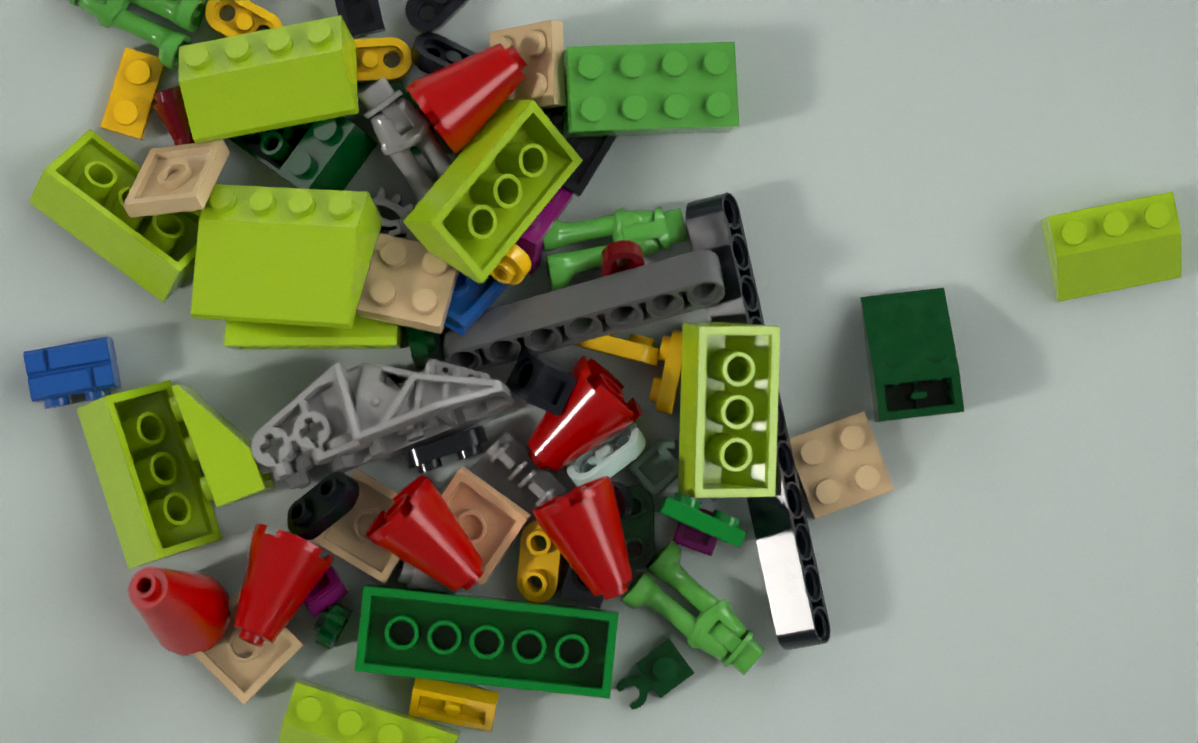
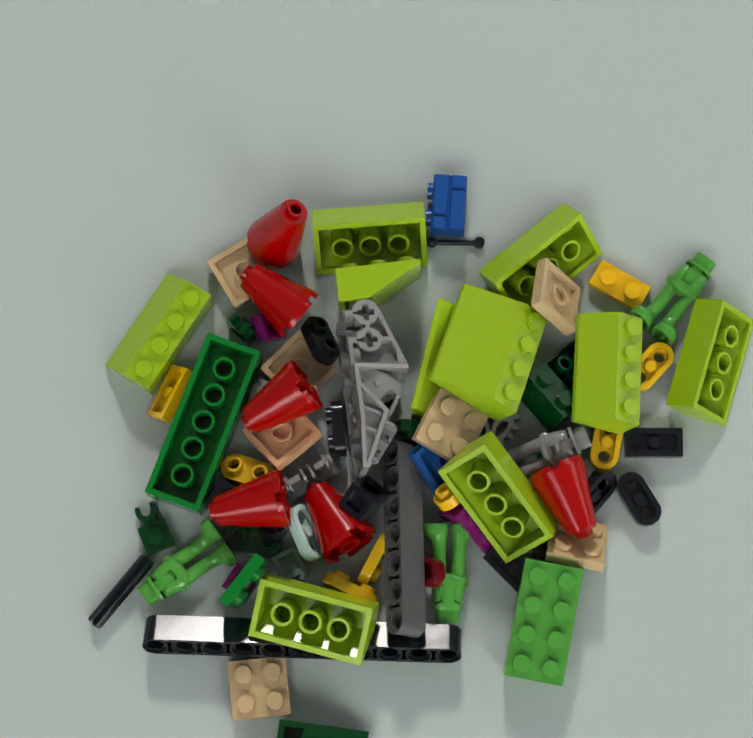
camera: 110 degrees right, 10 degrees down
(117, 314) = (477, 242): none -> black hinge
(173, 115) = (601, 304): dark red cone -> none
(754, 697) = (120, 591): none -> black axle

